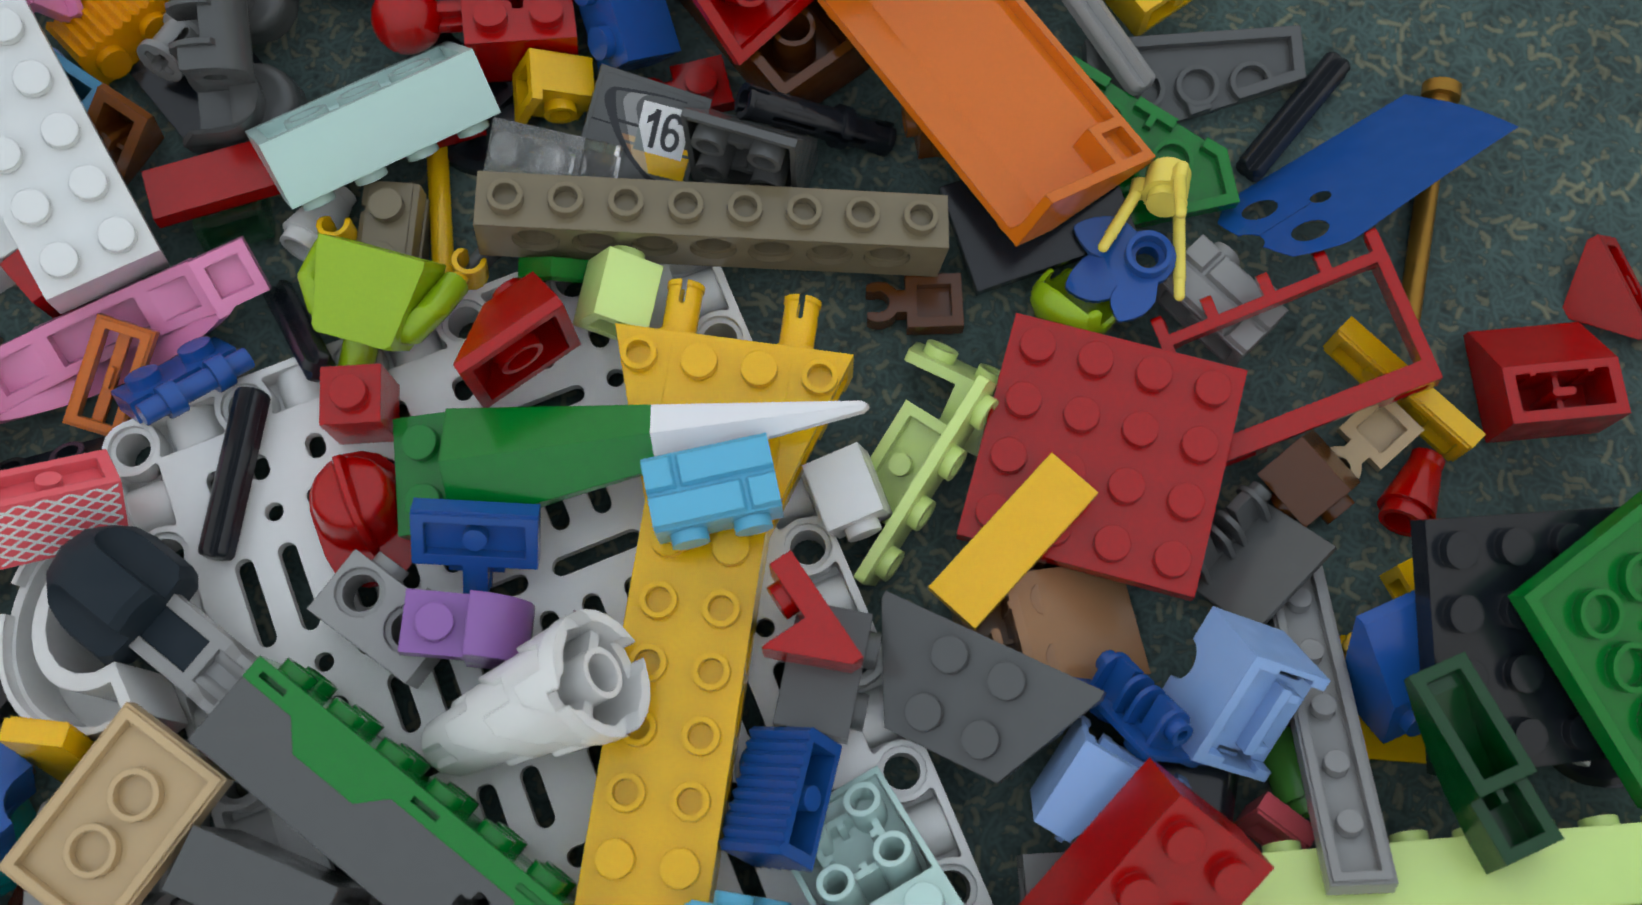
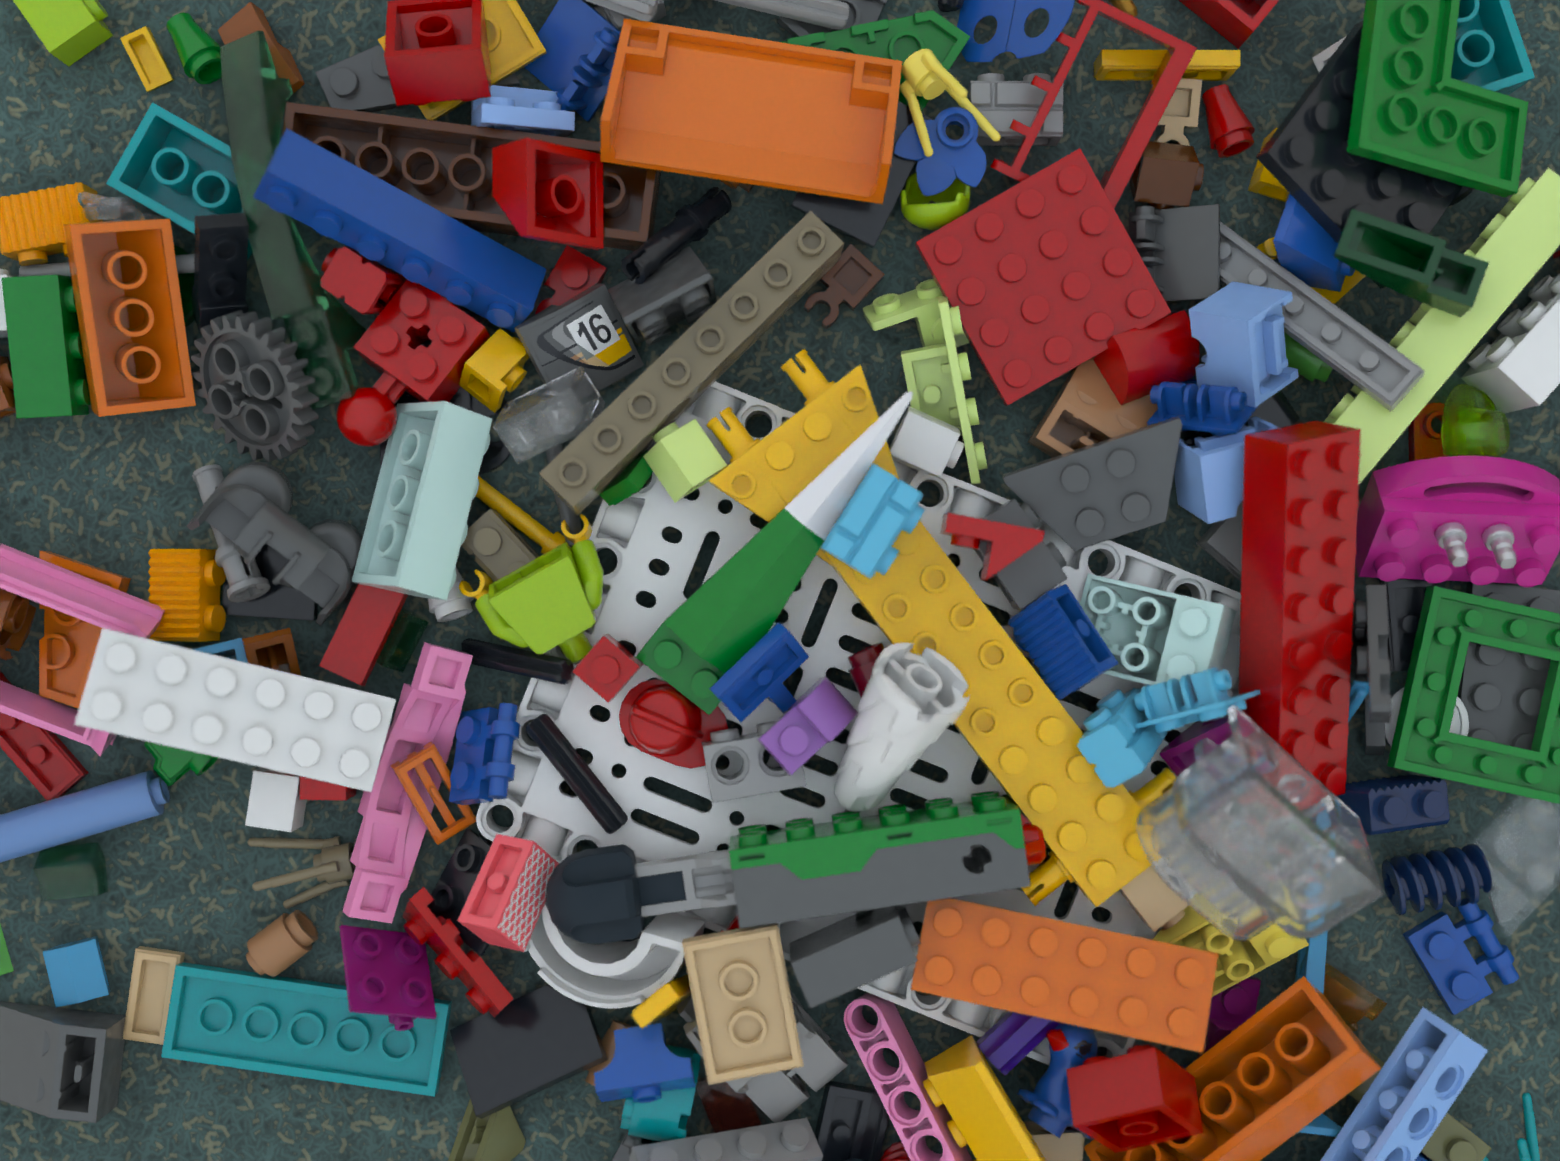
camera: 50 degrees left, 15 degrees up
(514, 339) = (651, 540): red slope -> none
(1012, 541) = (1047, 380): yellow tile -> none
(1129, 616) = (1149, 356): none -> red brick
(1272, 820) = (1320, 392): coral tile -> none

